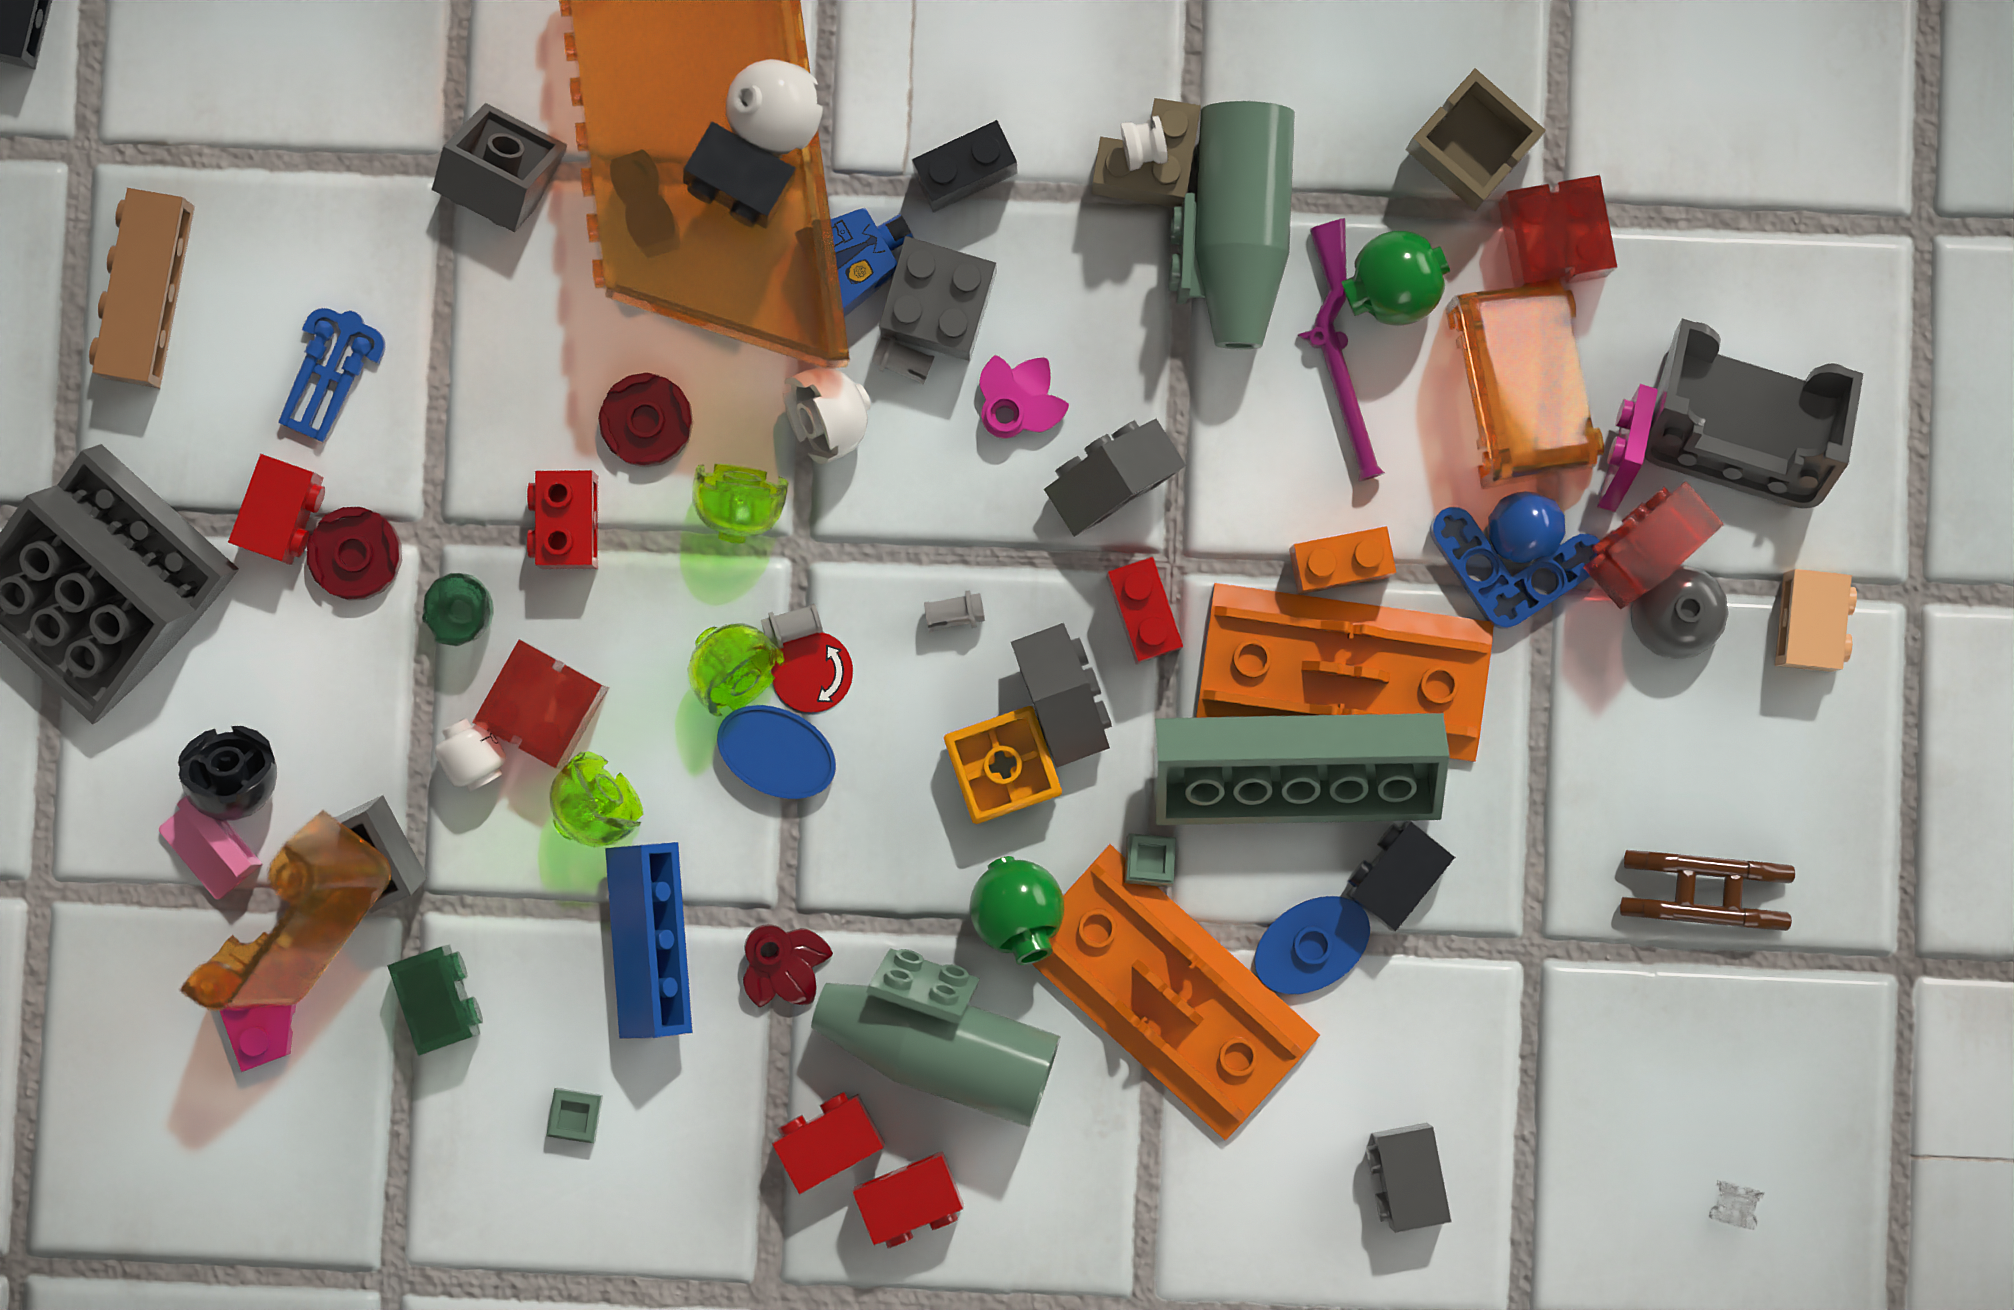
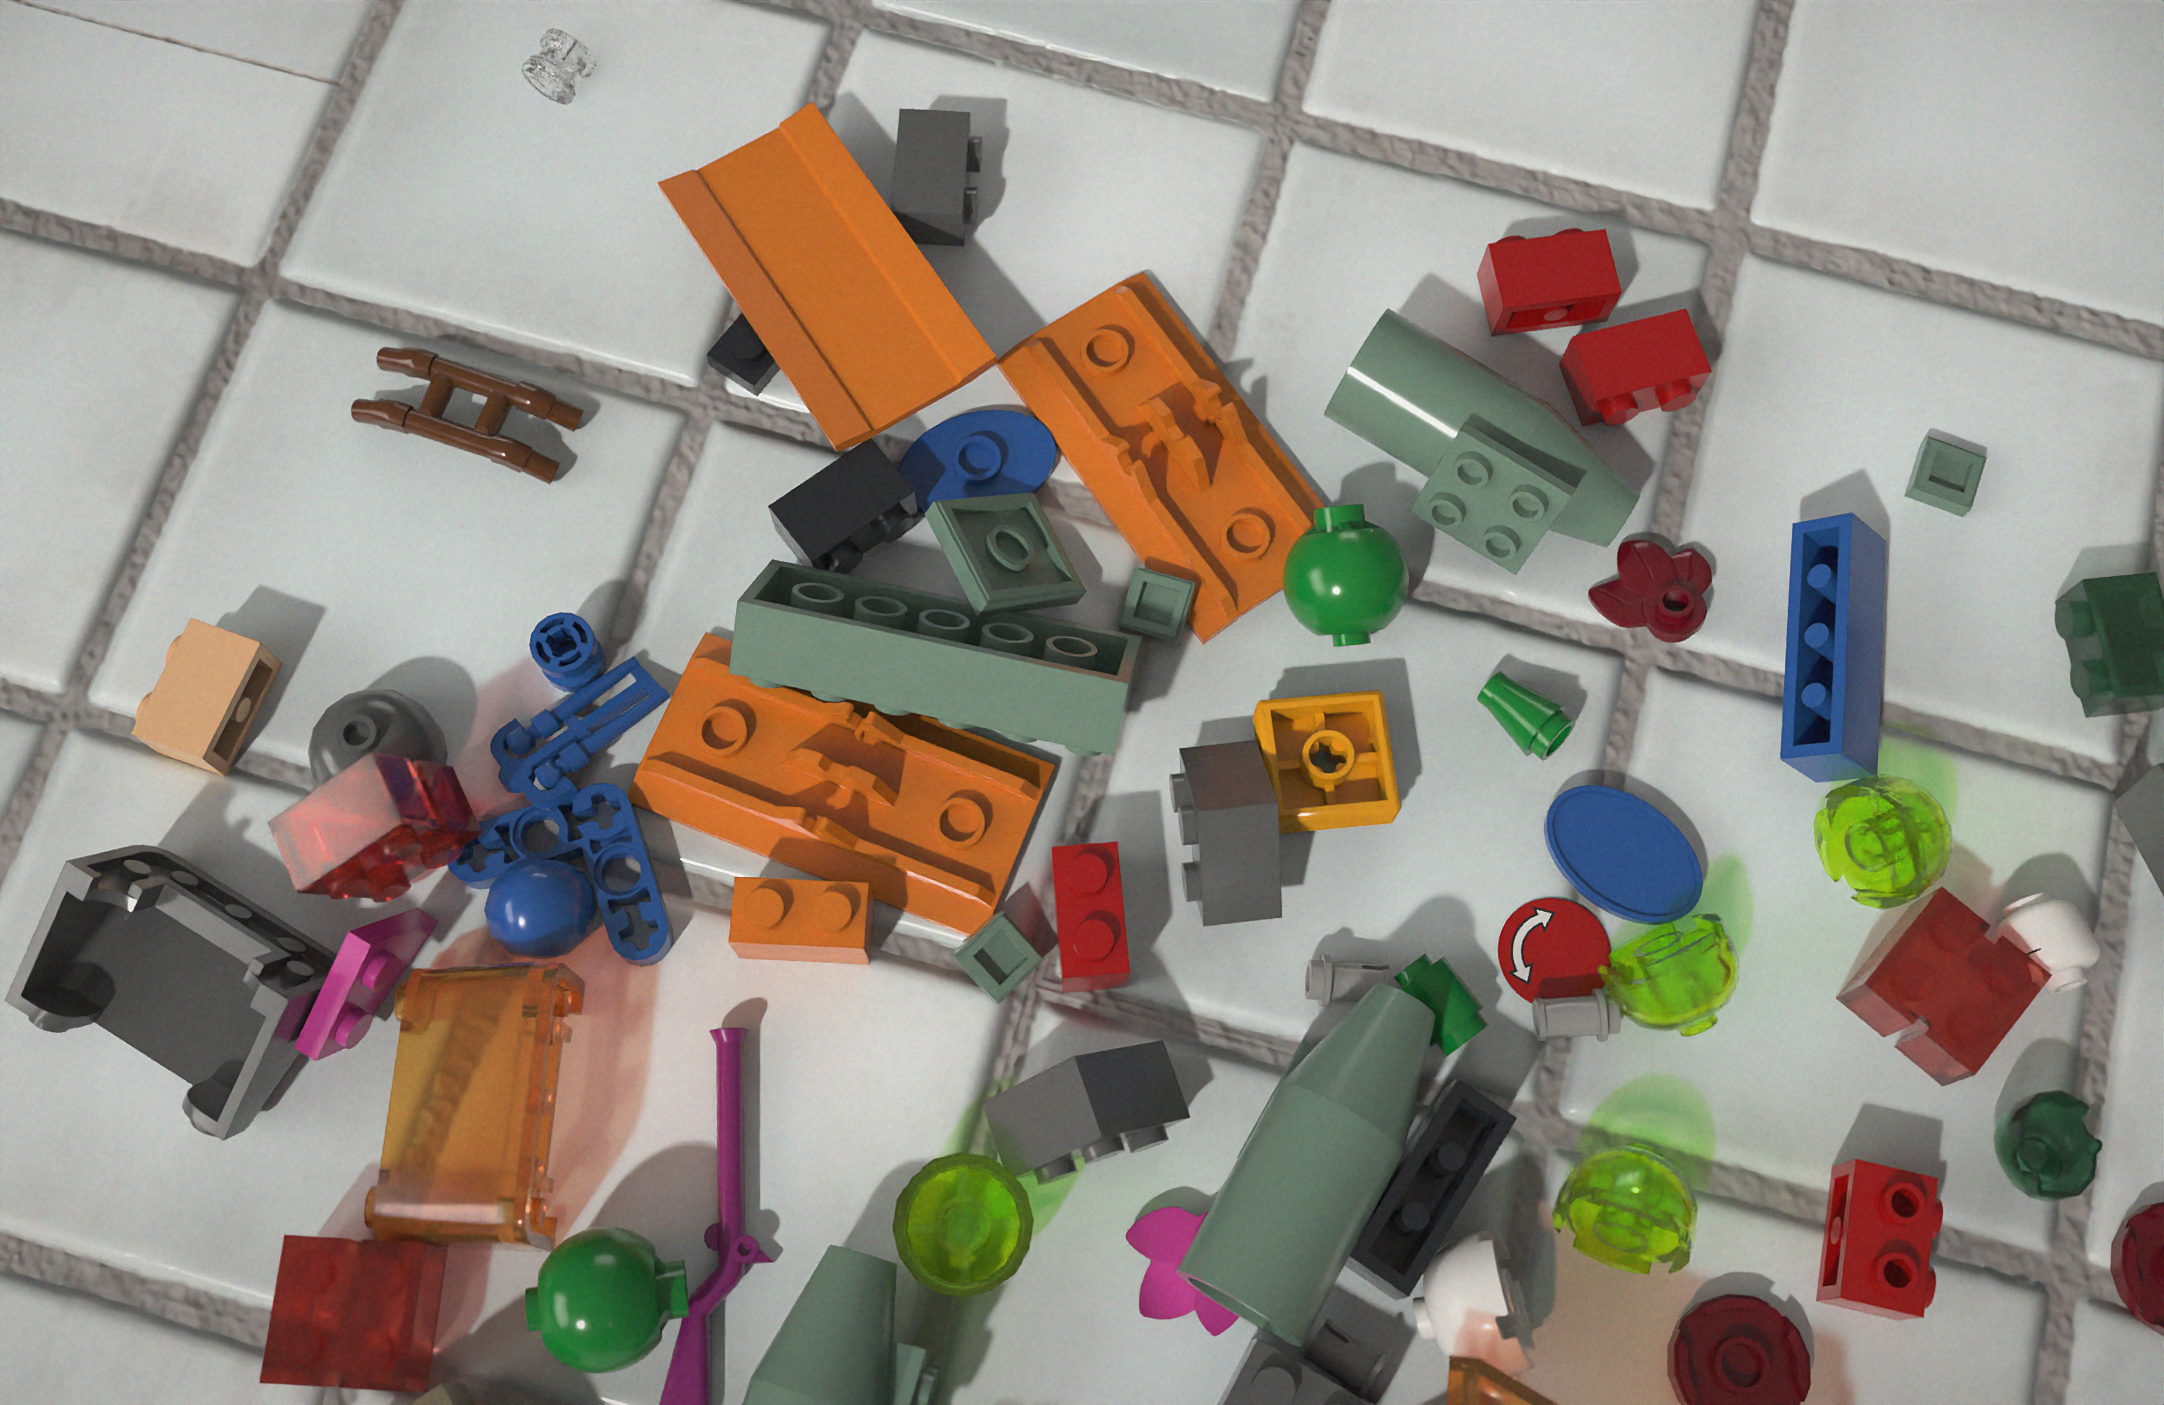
camera: 170 degrees left, 15 degrees down
(861, 837) = (1528, 717): none -> green cone
(875, 477) = (1429, 1189): none -> black brick
(888, 610) = (1448, 998): none -> green brick
(955, 469) = (1314, 1167): none -> sand green piece
(1177, 377) = (963, 1225): none -> clear neon green cylinder
(1201, 571) = (998, 956): none -> sand green tile
(1271, 866) = (1005, 553): none -> sand green tile
(1468, 1060) = (829, 279): none -> orange hinge
(1510, 994) = (743, 357): none -> black plate
(1559, 716) = (574, 663): none -> blue wheel
(1573, 619) = (519, 774): none -> blue piece

